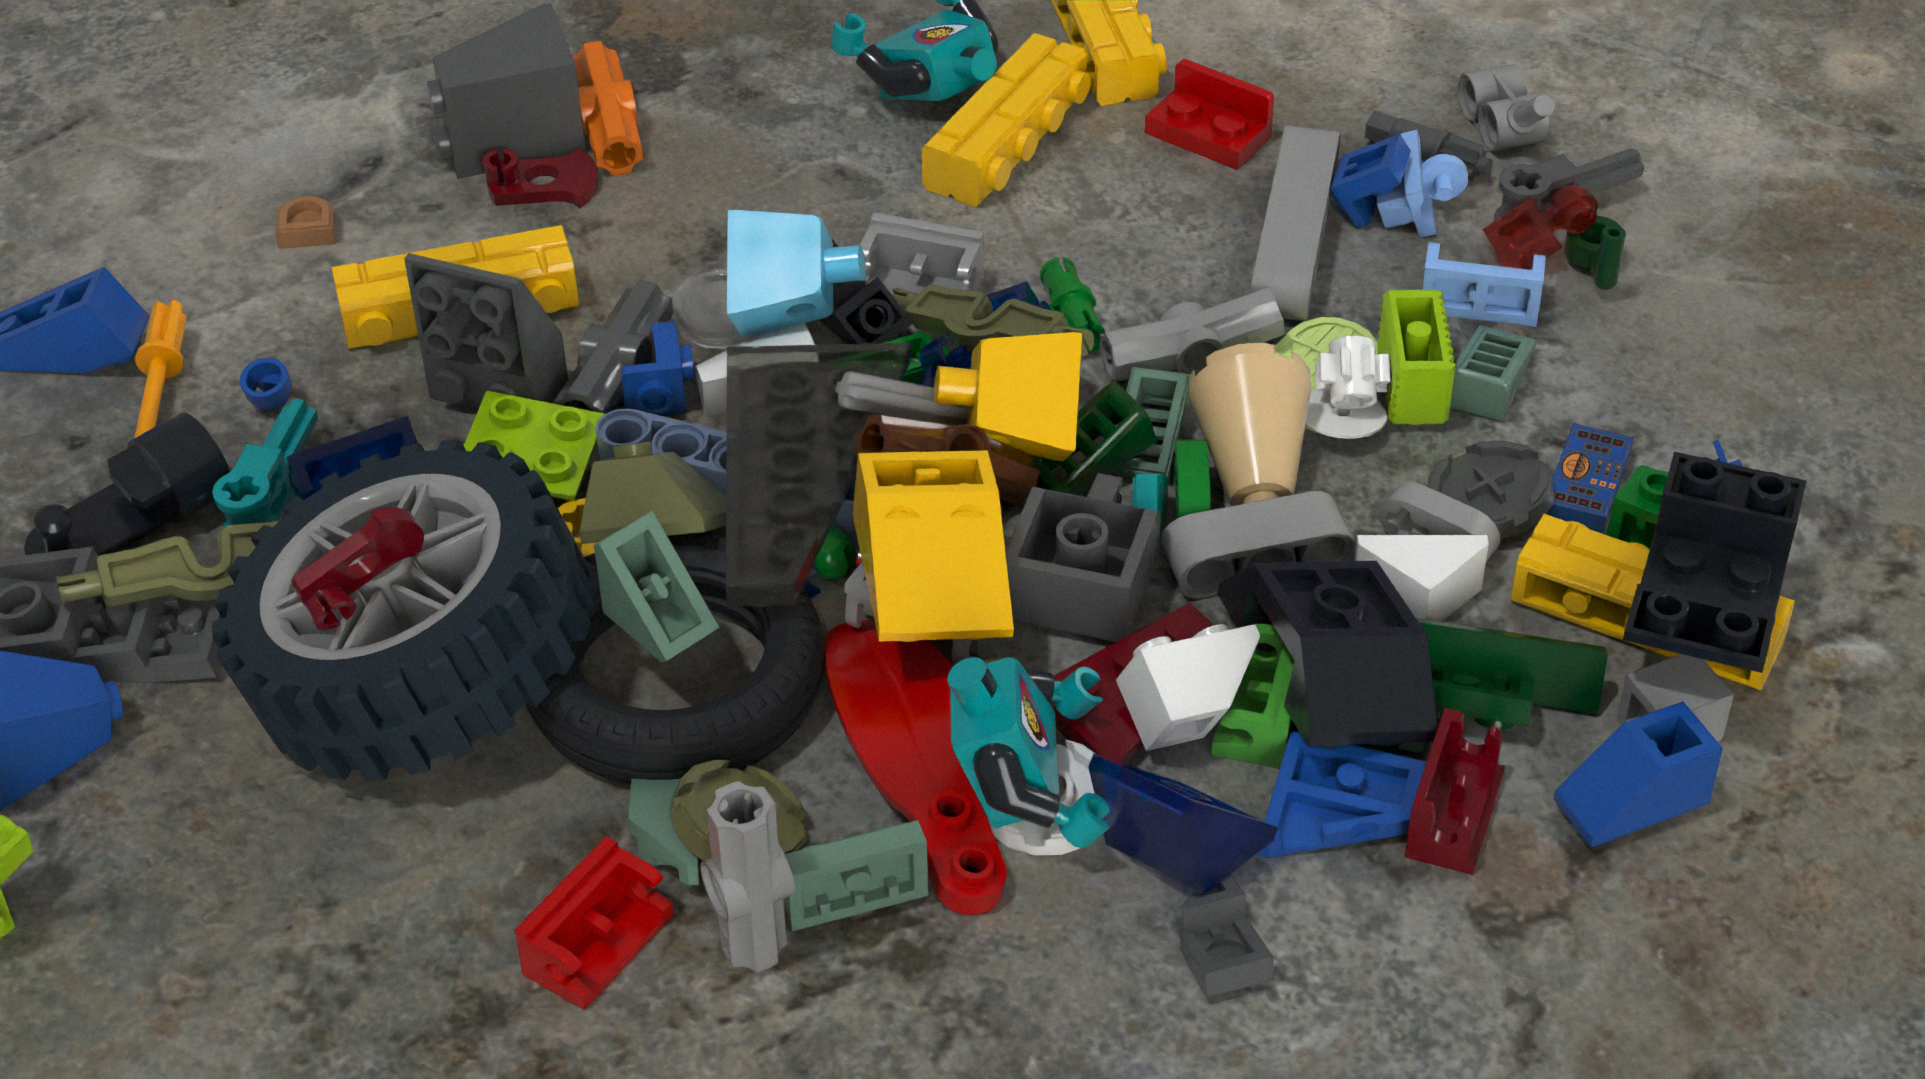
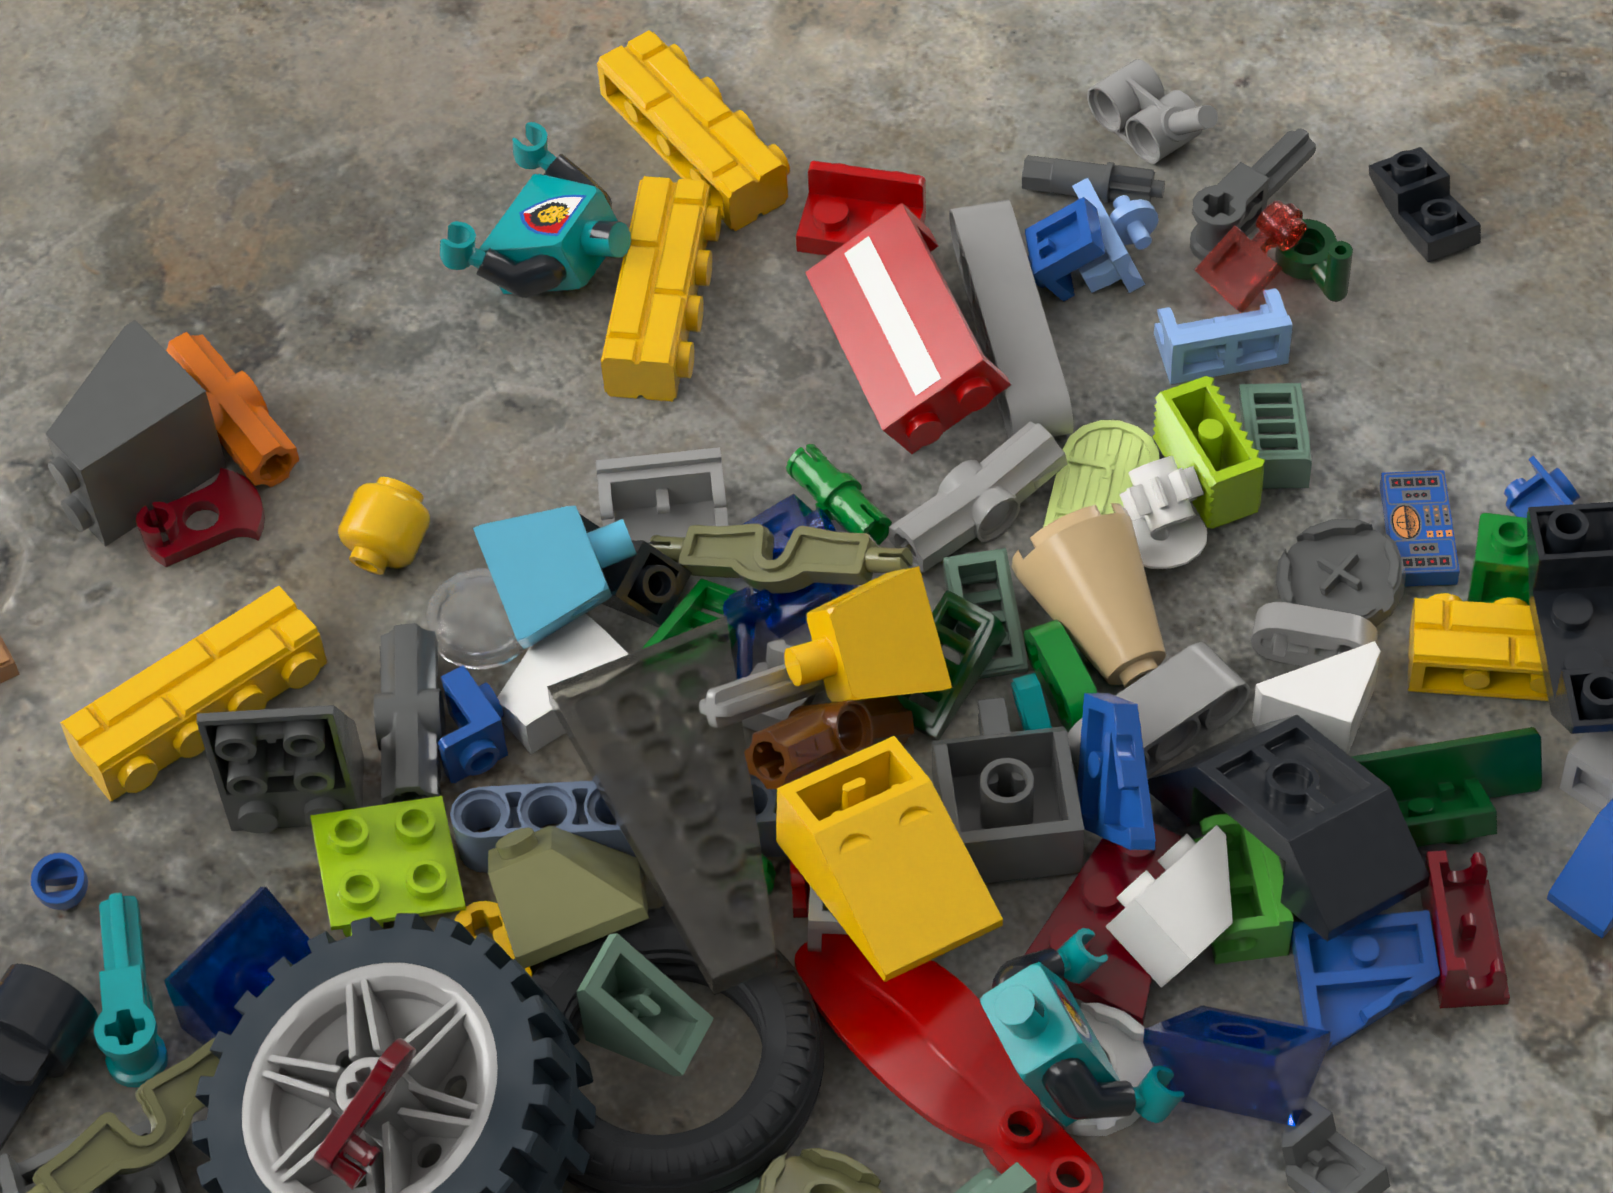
camera: 20 degrees left, 10 degrees up
(678, 216) = (384, 525): none -> yellow head
(1182, 552) = (1114, 773): none -> blue wing
(1190, 196) = (904, 330): none -> panel
(1724, 241) = (1421, 204): none -> black slope

